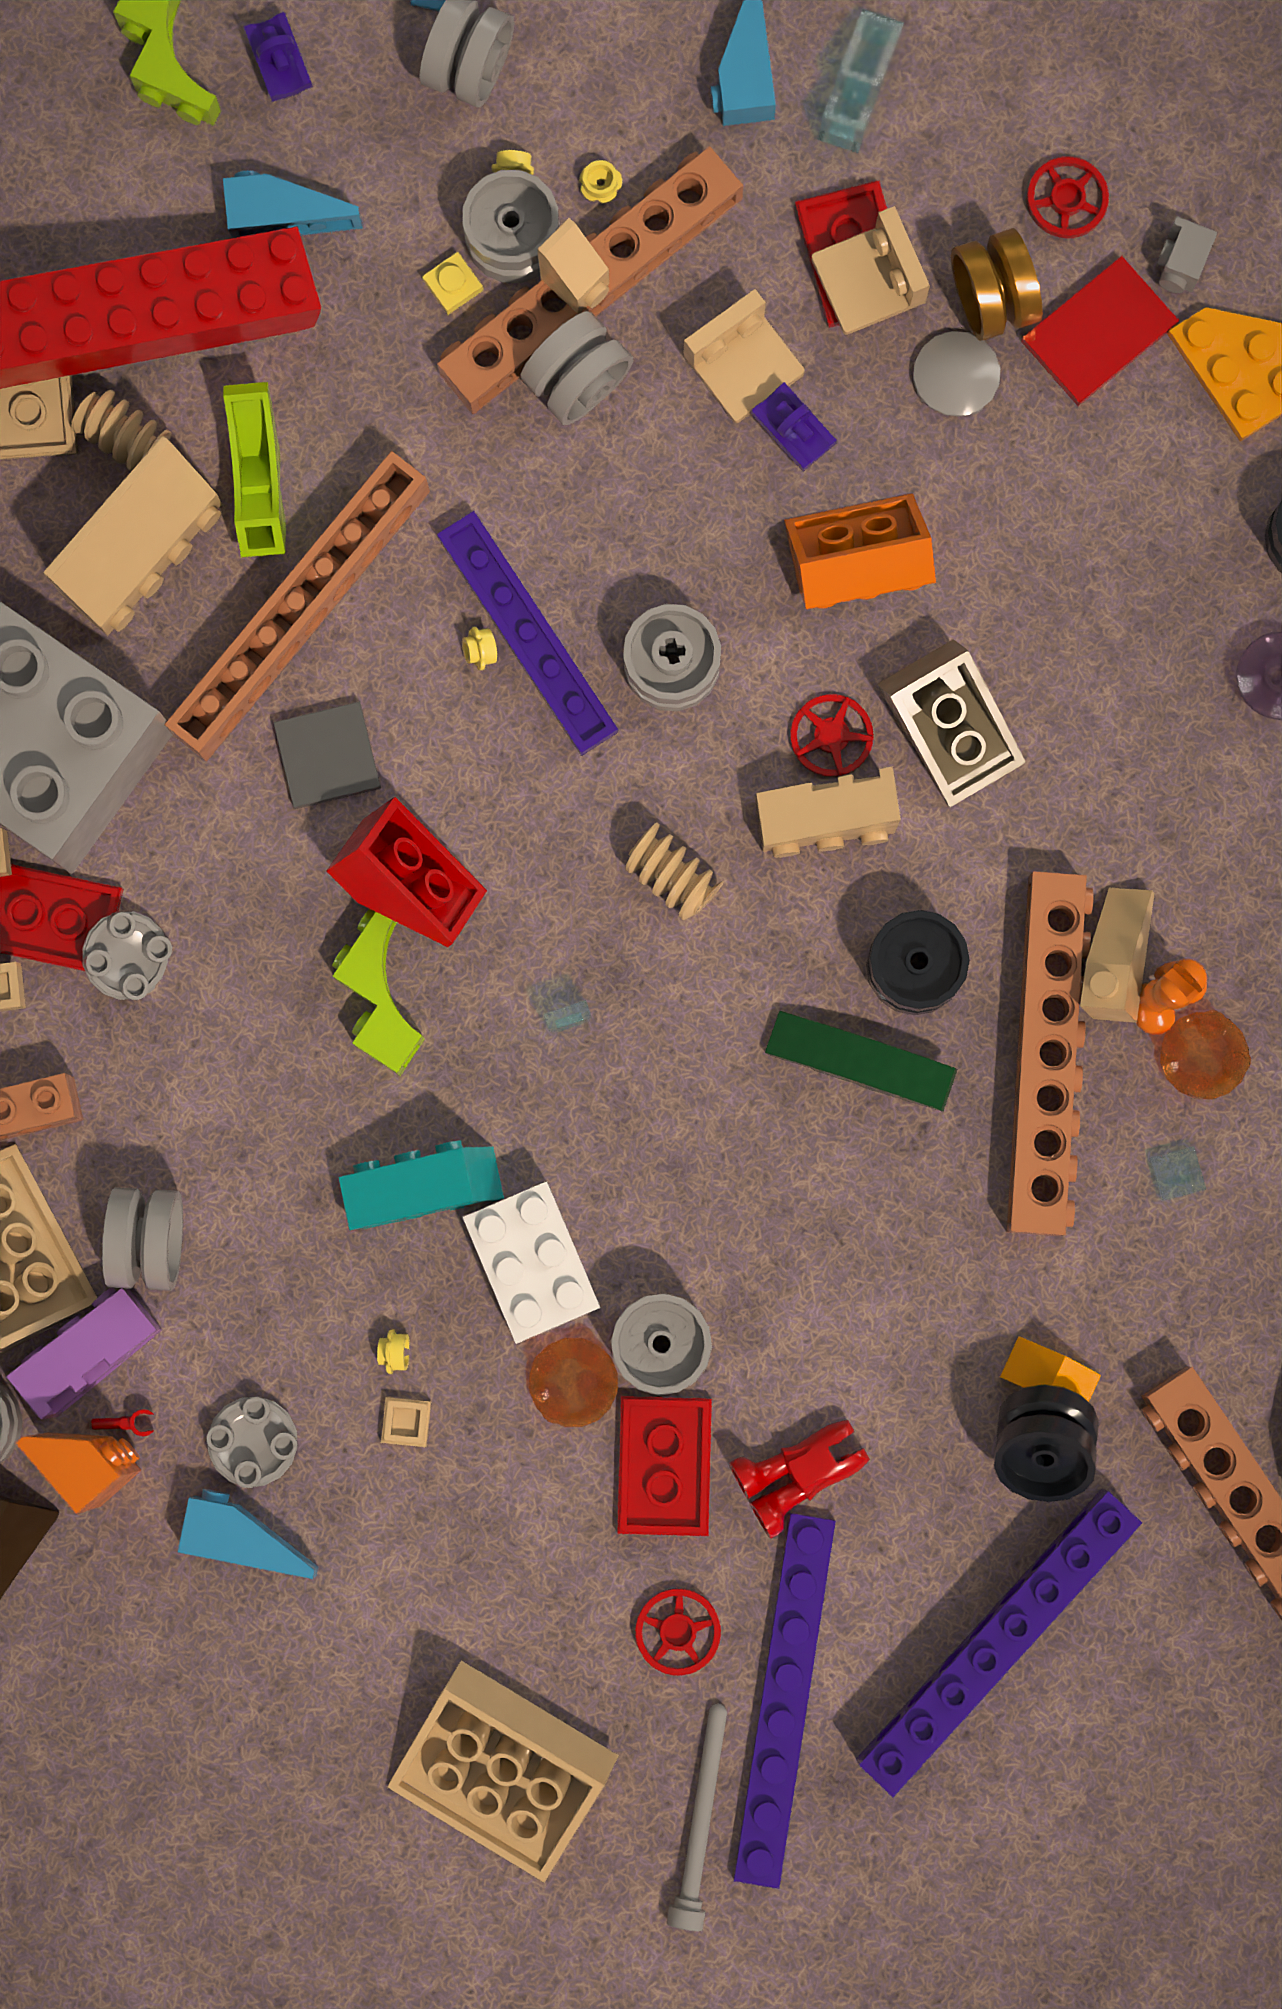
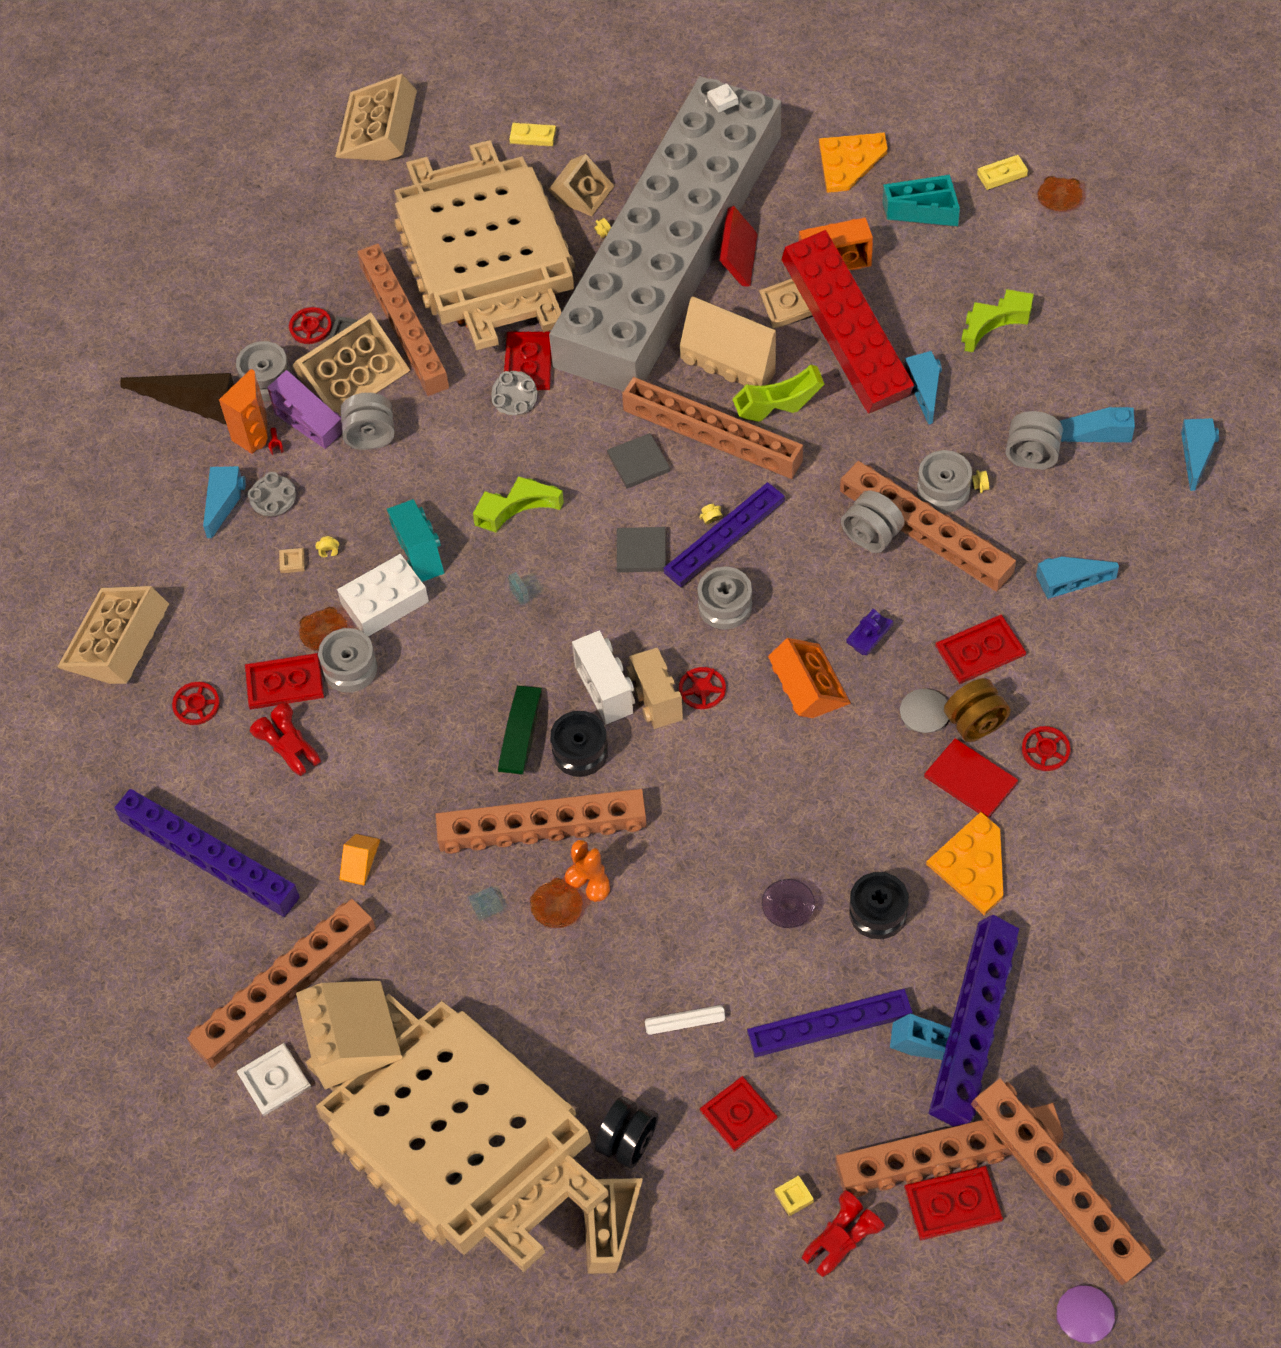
camera: 80 degrees right, 25 degrees down
(114, 429) = (789, 336): tan piece -> none
(278, 57) = (1006, 365): dark purple hips -> none
(407, 874) = (578, 498): red slope -> none
(452, 283) = (907, 467): light yellow plate -> none
(523, 786) = (641, 549): none -> dark grey tile
(573, 268) = (922, 499): tan slope -> none
(600, 170) = (985, 516): light yellow plate -> none
(671, 873) = (608, 617): tan piece -> none
(687, 1910) = (48, 732): light grey piece -> none
(741, 357) = (906, 601): tan bracket -> none
(784, 1701) = (164, 759): dark purple plate -> none
(799, 896) = (603, 677): none -> white brick
(860, 81) = (1080, 631): clear light blue slope -> none
(872, 274) = (966, 651): tan bracket -> none
(952, 722) = (721, 740): dark tan slope -> none
(1046, 1443) = (317, 847): black wheel -> none
(1118, 956) = (611, 842): tan slope -> none
(1185, 256) = (1026, 810): light grey brick -> none

